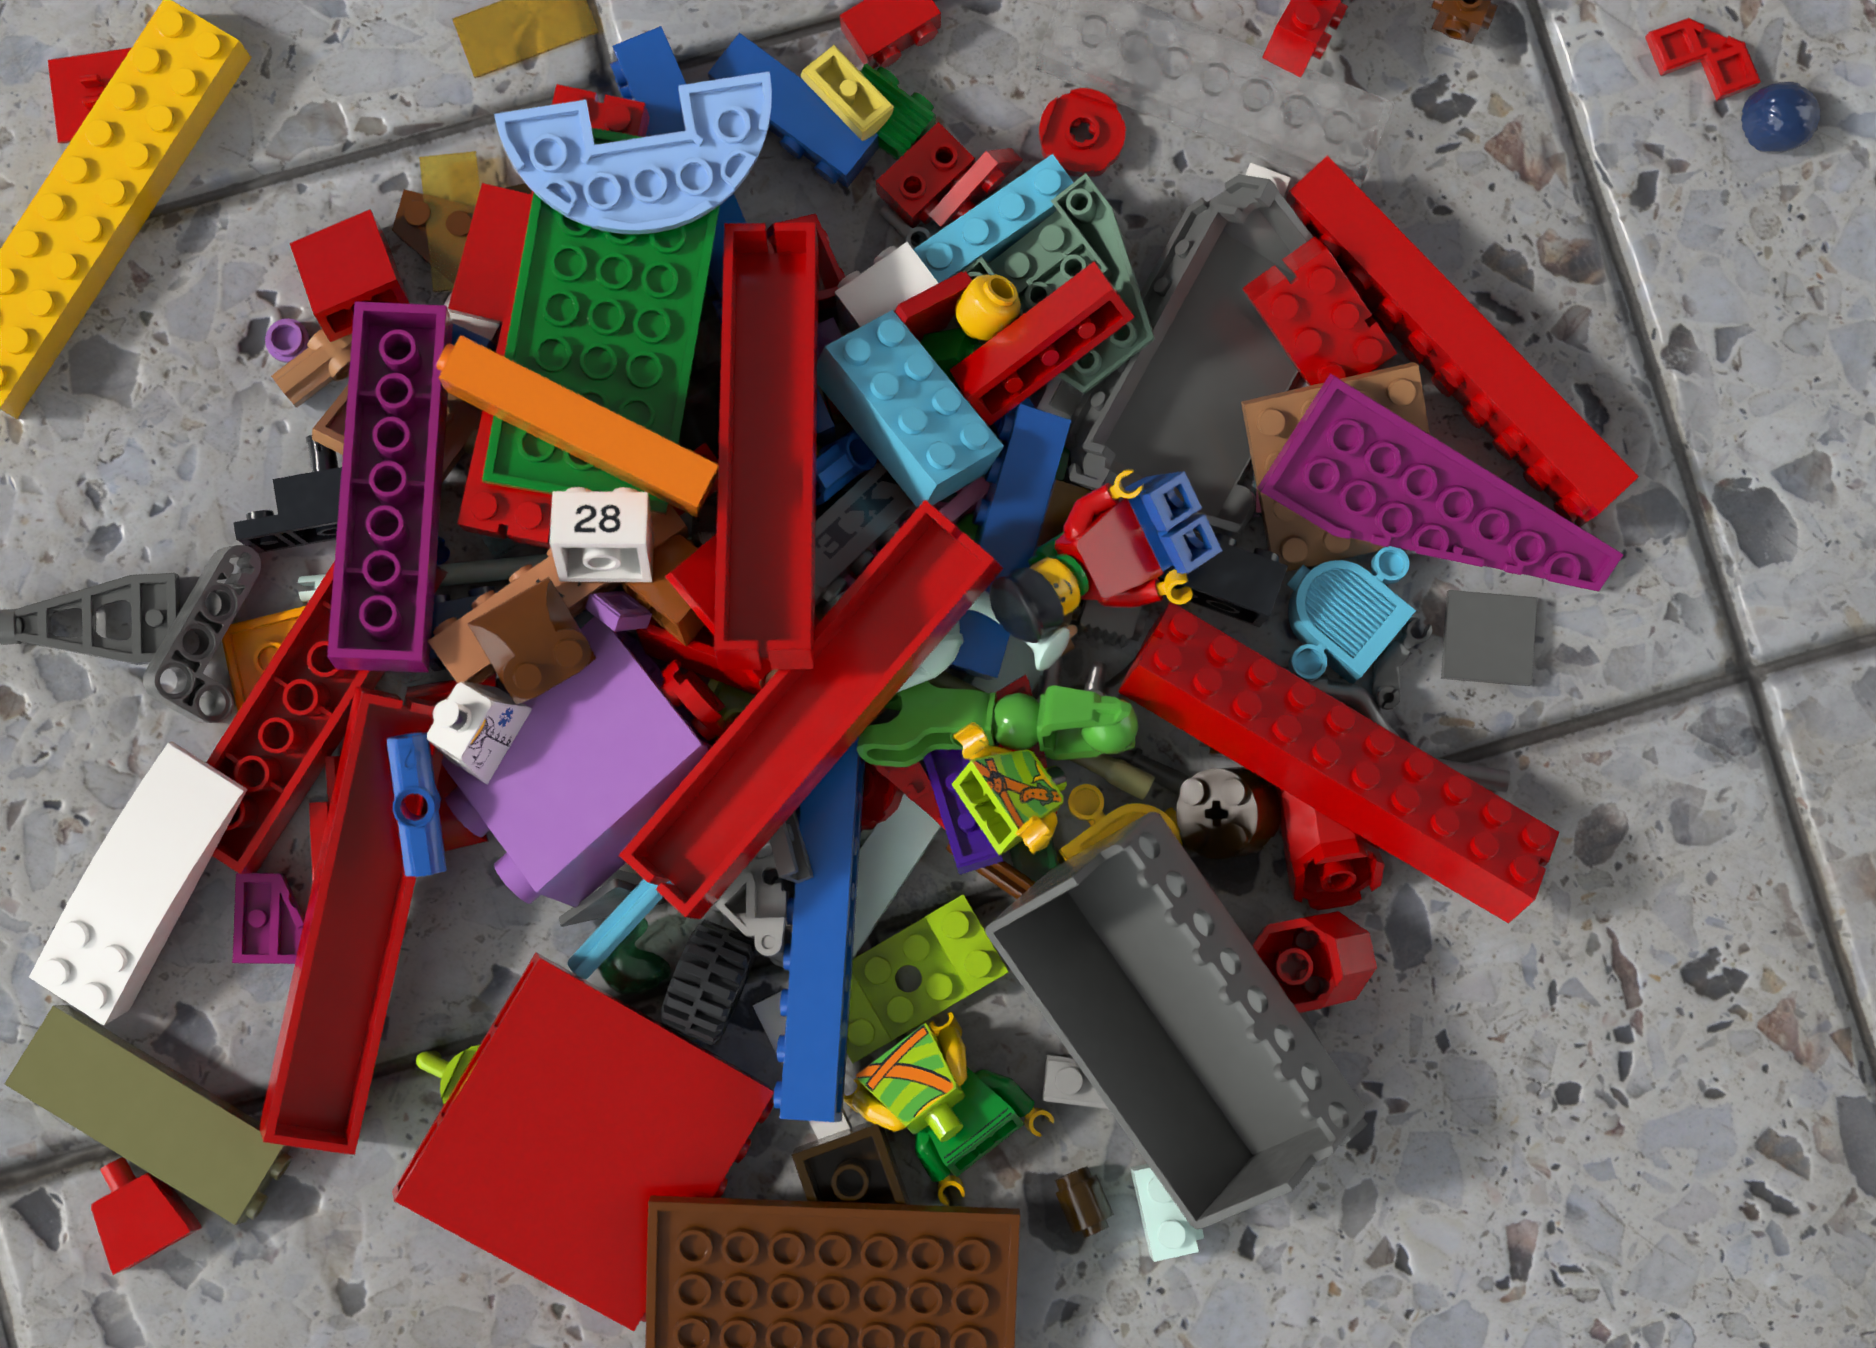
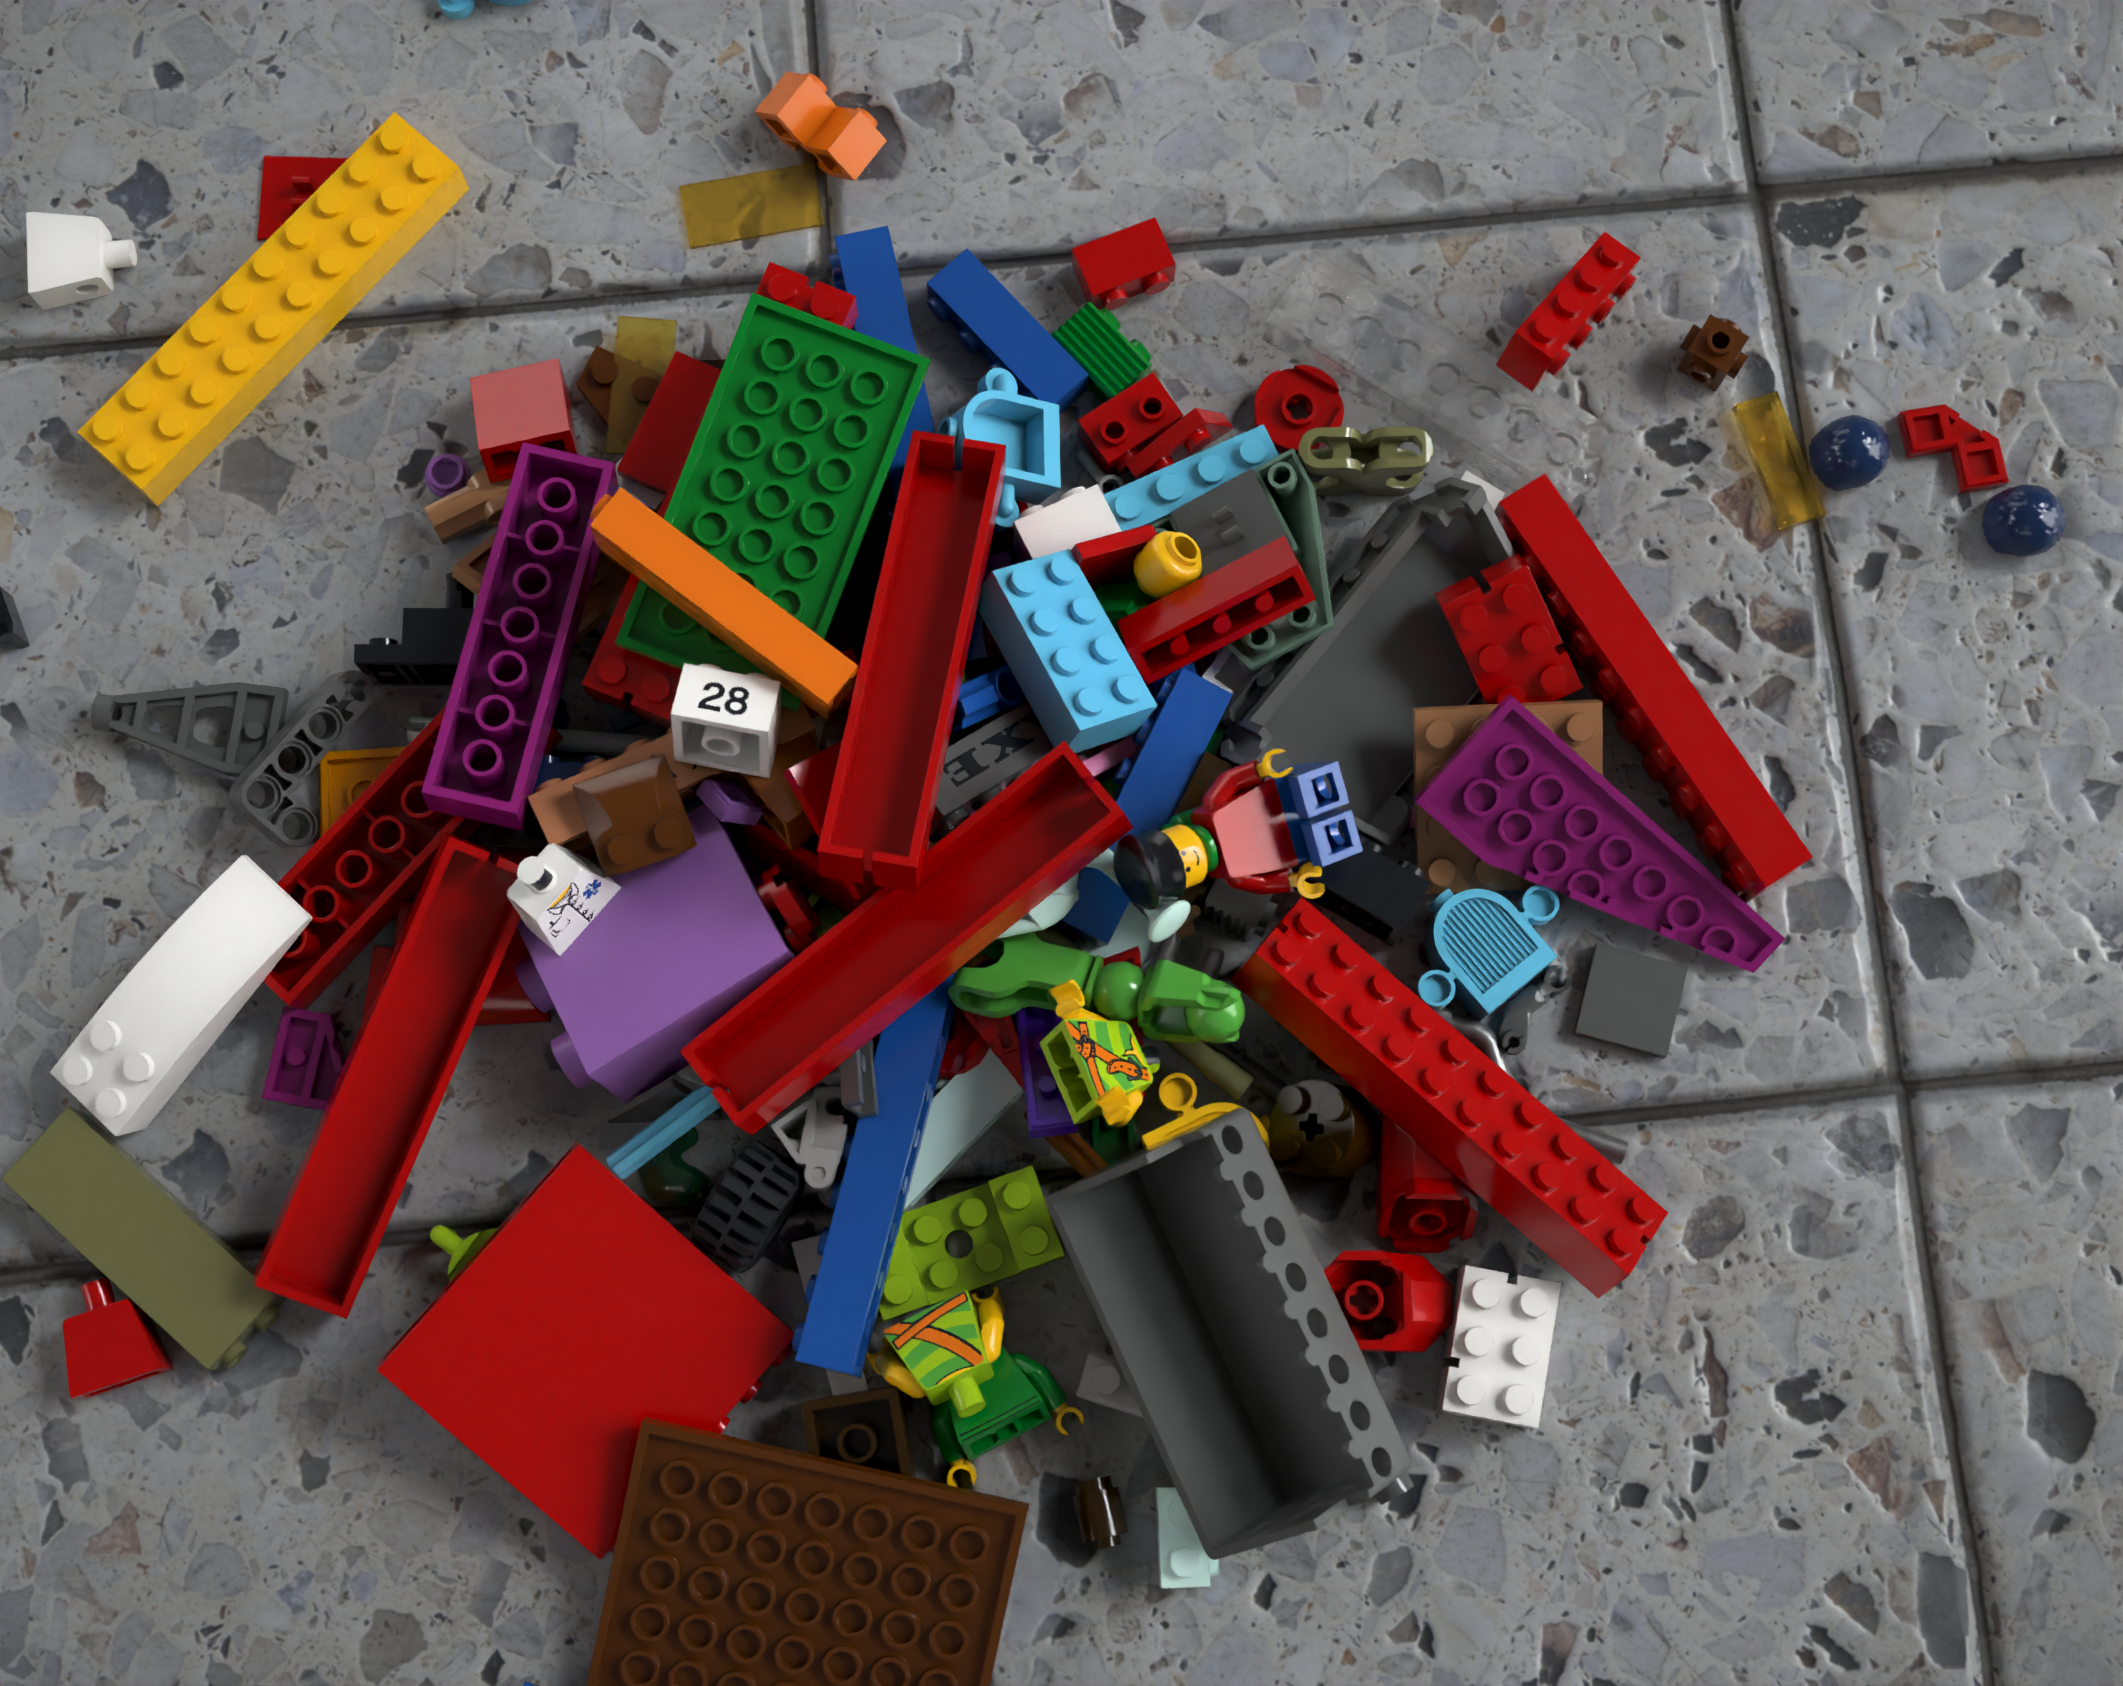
camera: 10 degrees right, 5 degrees down
(419, 834) = (479, 994): blue piece -> none
(646, 180) = (839, 370): light blue plate -> none
(818, 196) = (1027, 429): none -> medium azure piece
(848, 93) = (1065, 326): light yellow brick -> none
(1038, 255) = (1229, 521): none -> dark grey piece
(1154, 171) = (1365, 460): none -> olive piece
(1426, 979) = (1502, 1347): none -> white piece
(1541, 100) = (1778, 461): none -> clear yellow tile
(1607, 81) = (1849, 452): none -> dark blue hair

